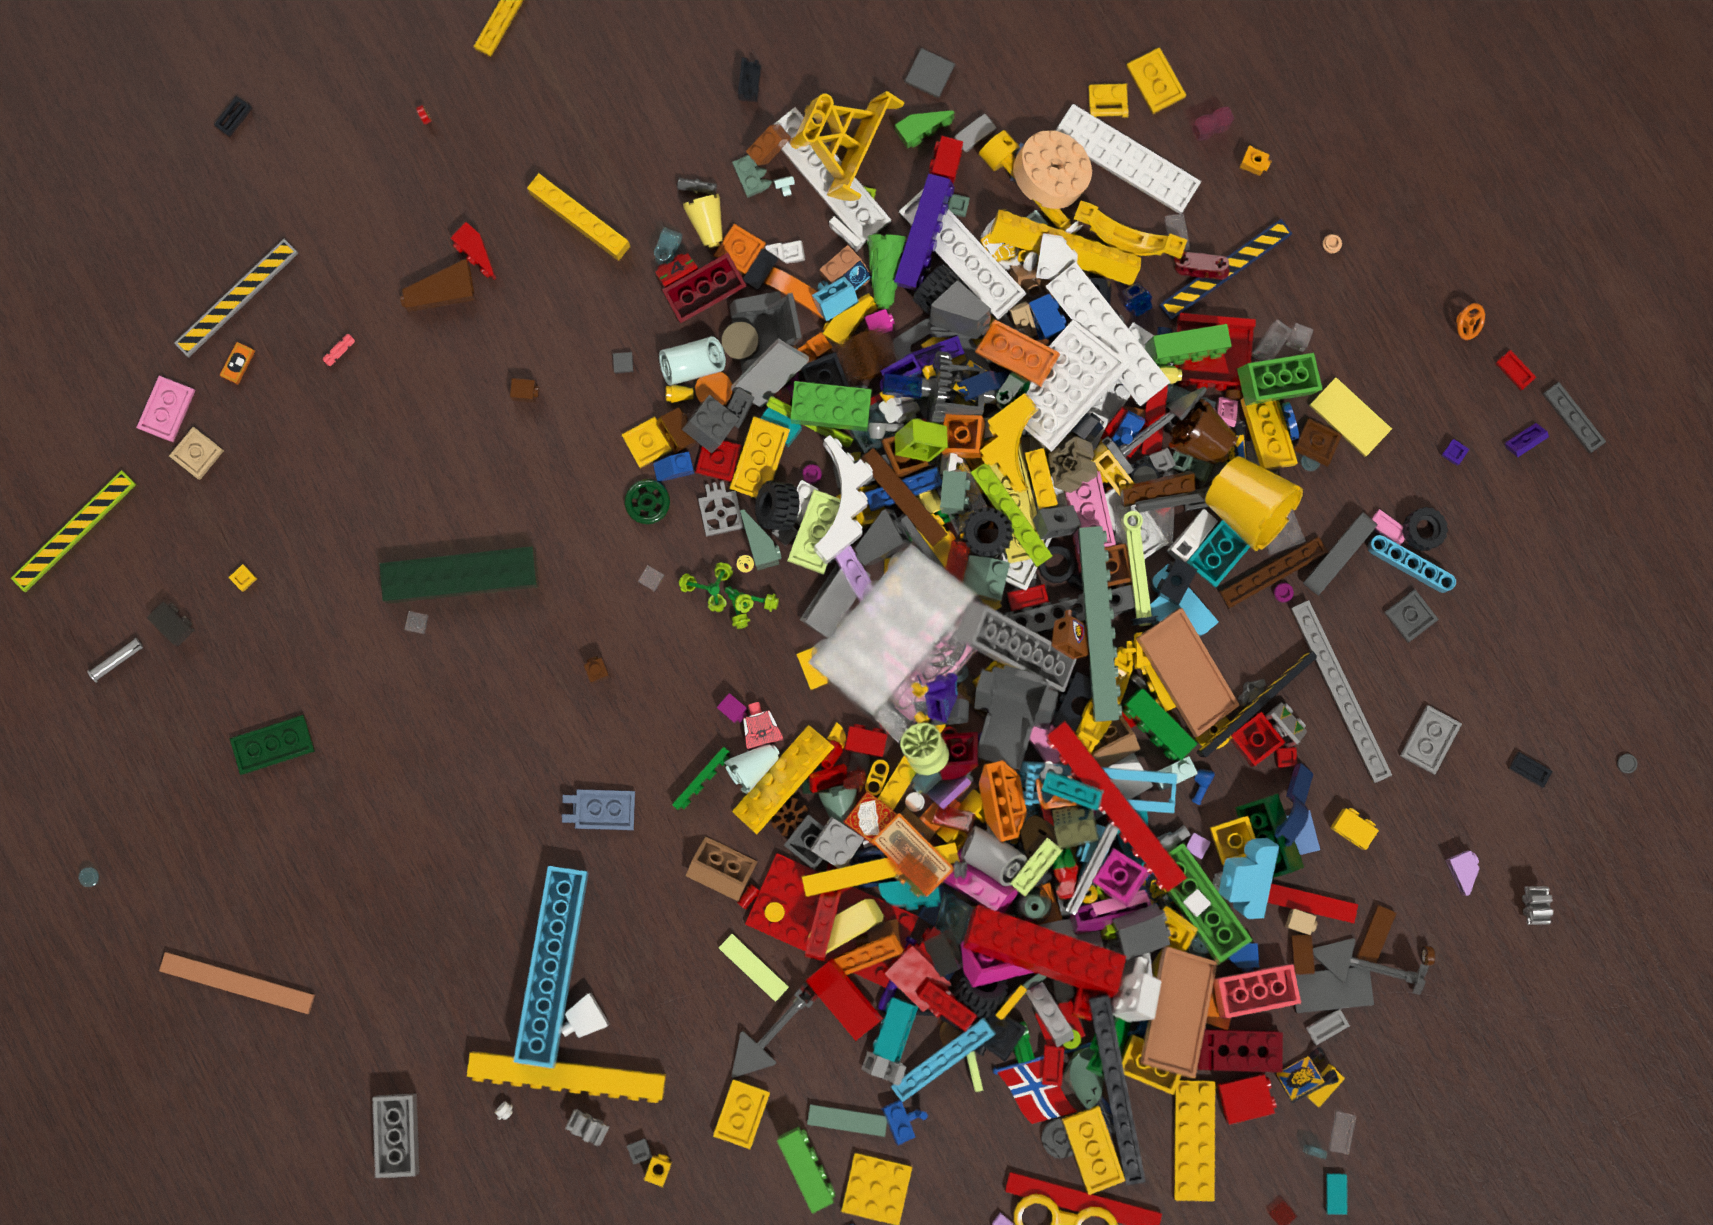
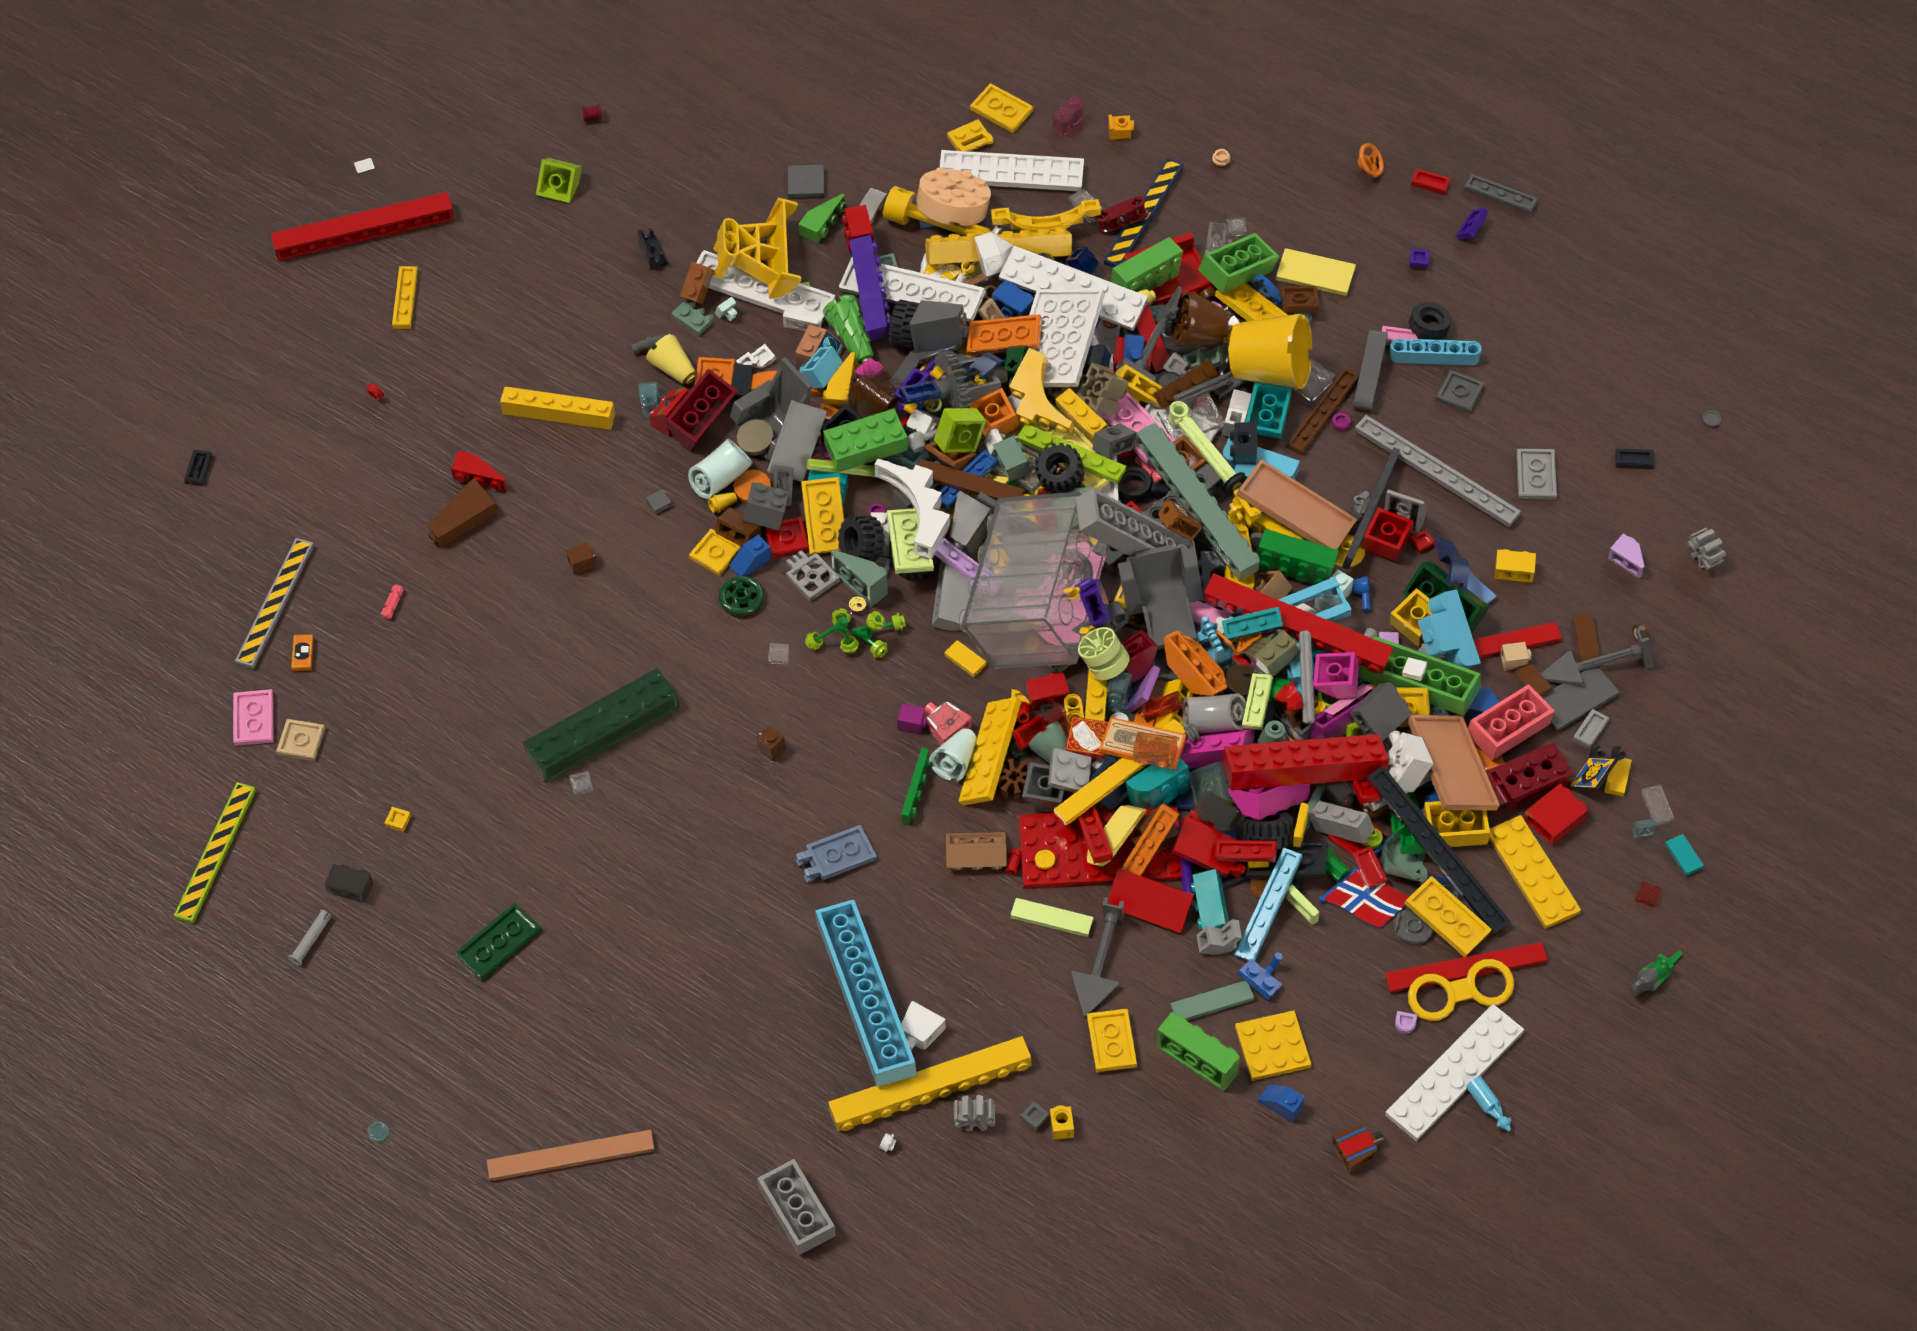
camera: 25 degrees left, 25 degrees down
(1030, 261) = (974, 267): white piece -> none

